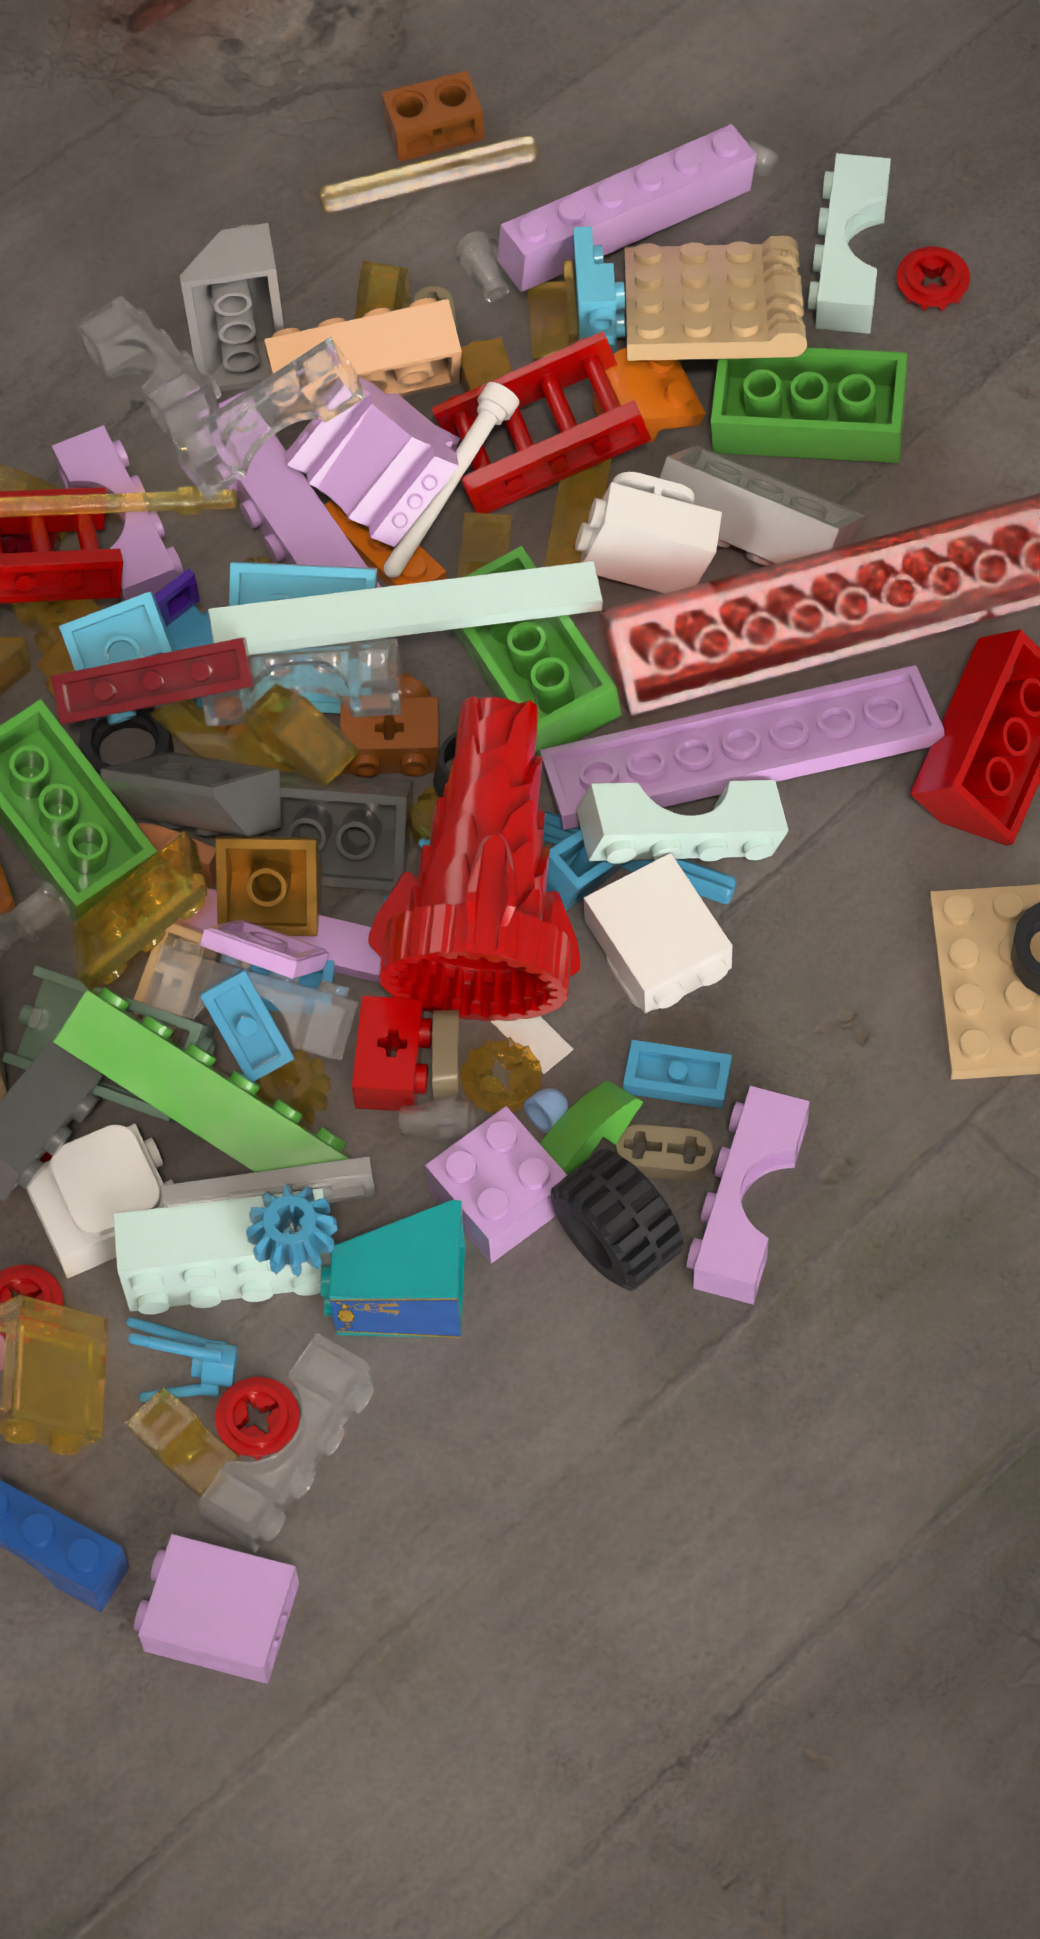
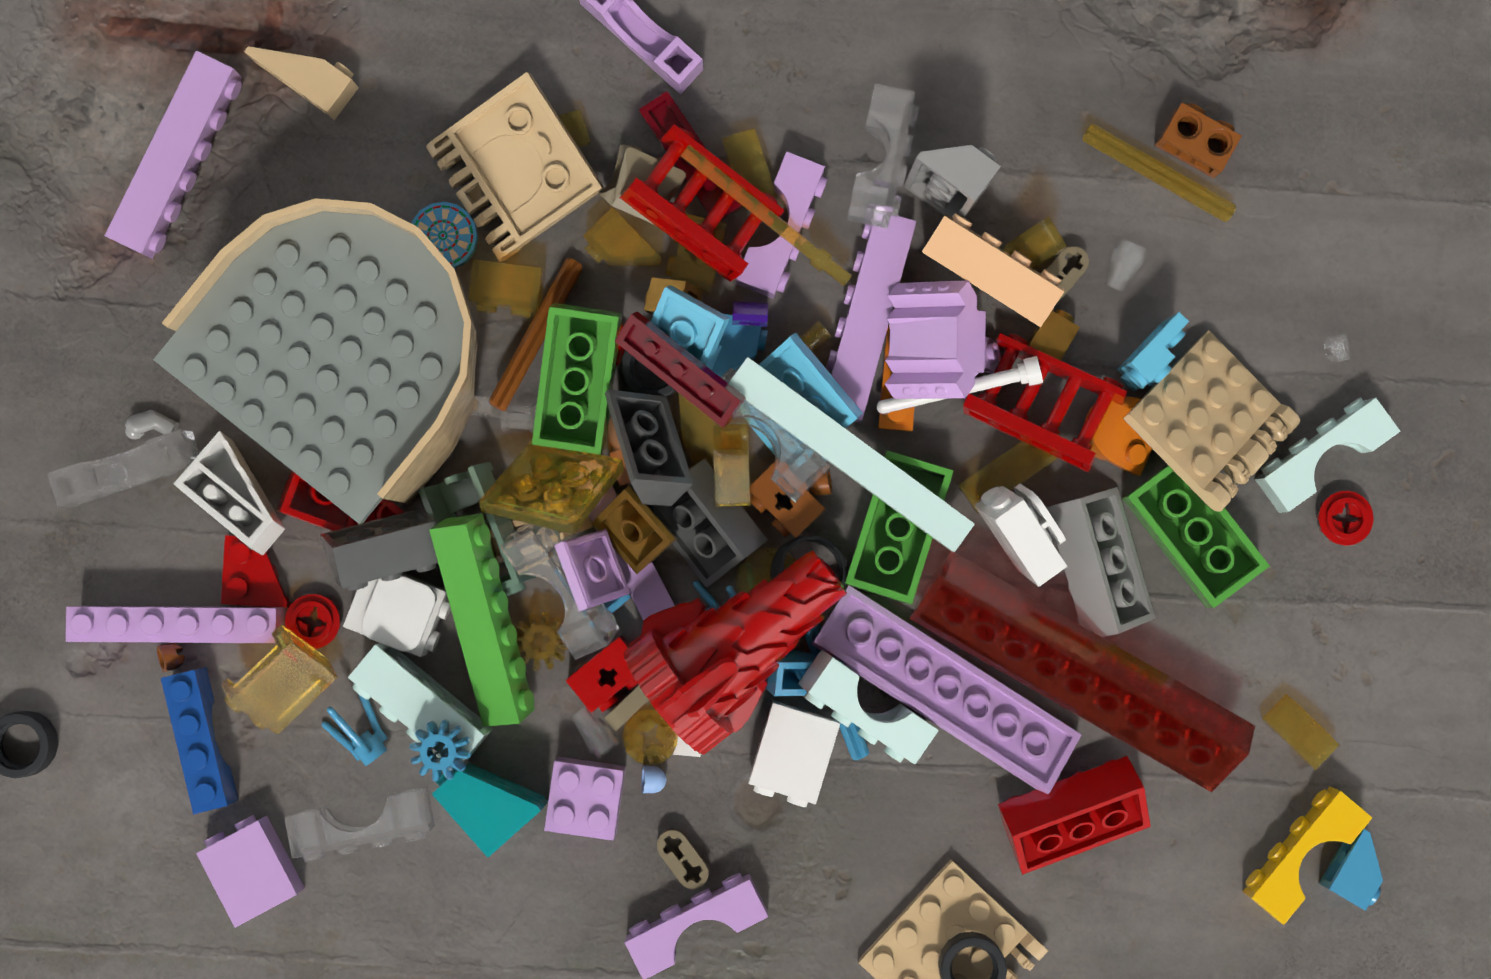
camera: 40 degrees right, 25 degrees up
(180, 1441) = (317, 769): clear yellow slope -> none
(224, 443) = (861, 252): clear arch -> none
(246, 1025) = (538, 606): dark azure plate -> none
(264, 1396) = (348, 801): red gear -> none
(339, 1179) = (461, 705): light grey tile -> none
(483, 540) = (945, 436): clear yellow slope -> none
(553, 315) = (1124, 337): clear yellow panel -> none
(597, 1115) = (657, 811): bright green slope -> none
(617, 1219) = (611, 885): black tyre -> none
(628, 205) = (1232, 313): lavender brick -> none
(677, 1074) = (730, 827): dark azure plate -> none

